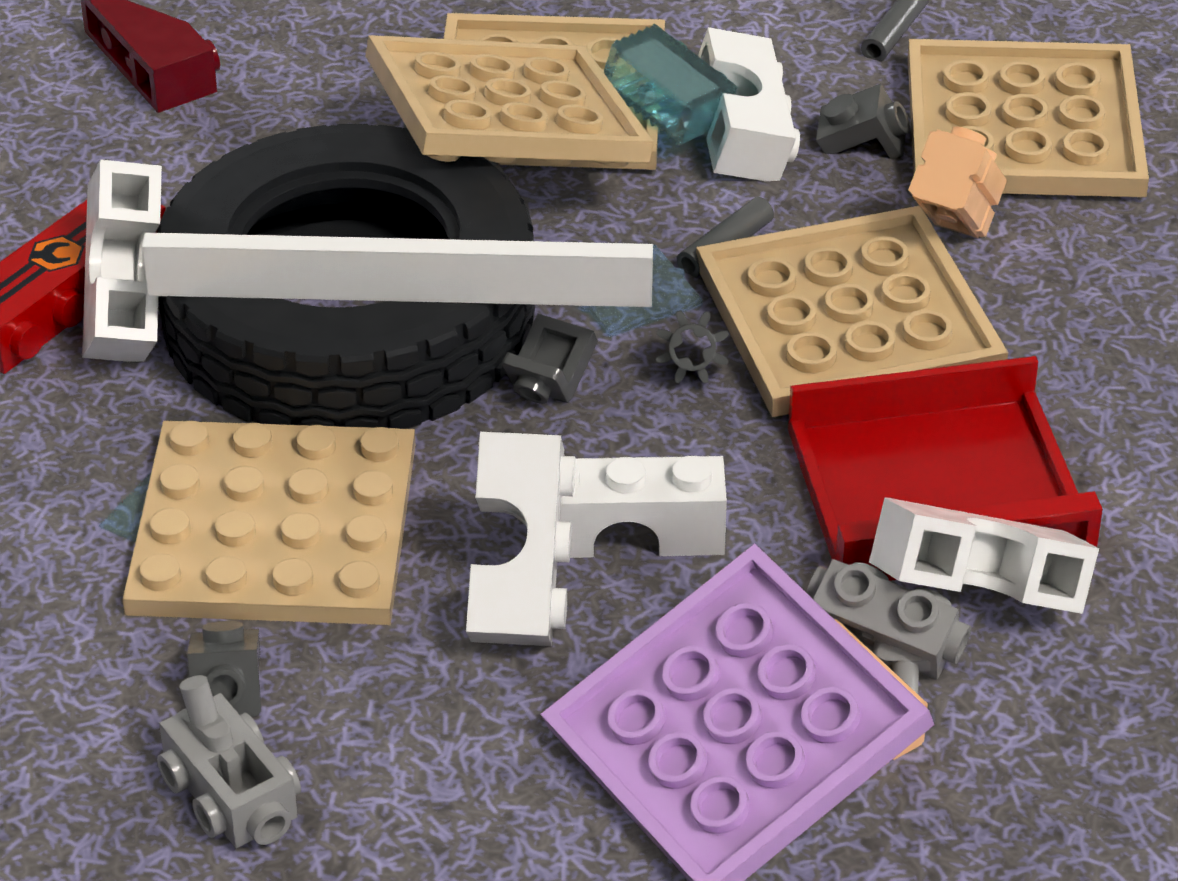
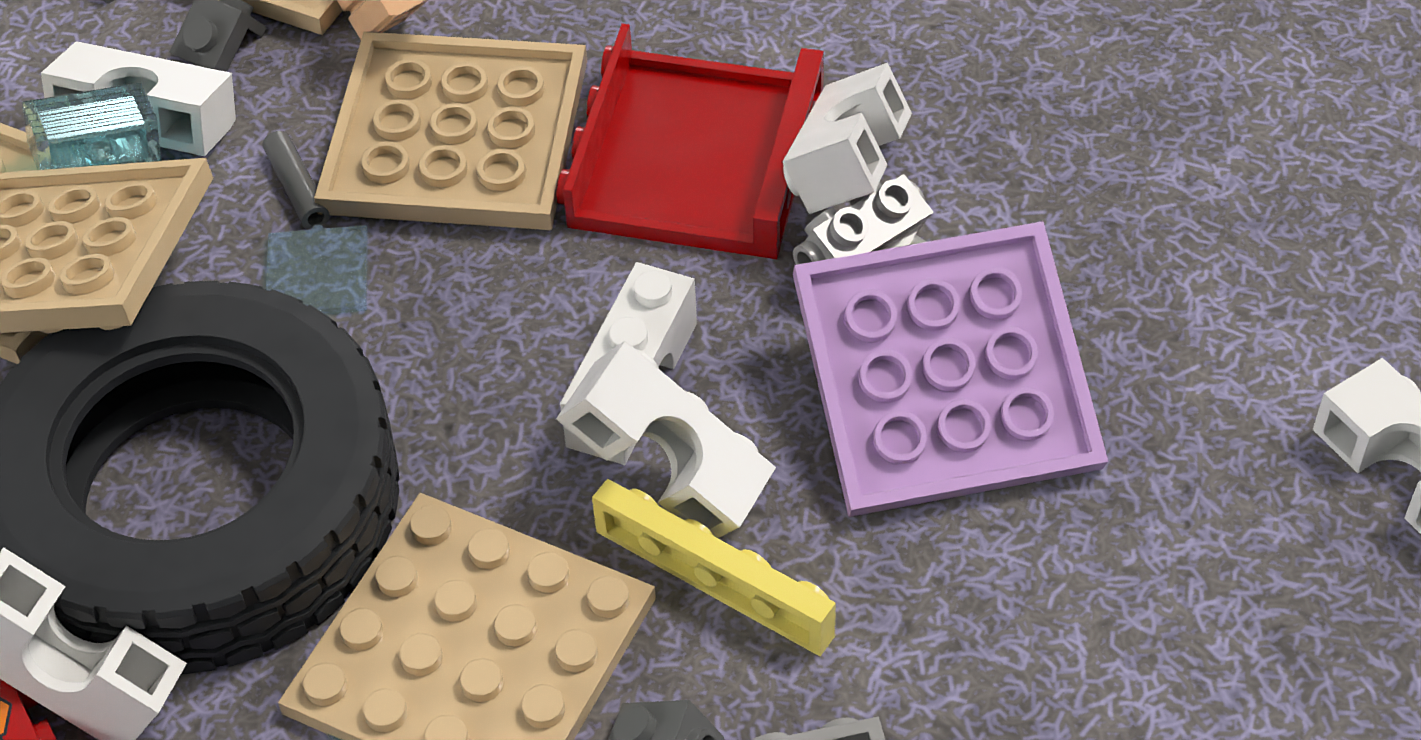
camera: 65 degrees left, 10 degrees up
(398, 269) = (283, 413): white tile -> none
(422, 654) = (729, 575): none -> light yellow plate
(550, 360) = (398, 355): dark grey bracket -> none
(685, 362) = (447, 246): dark grey gear -> none

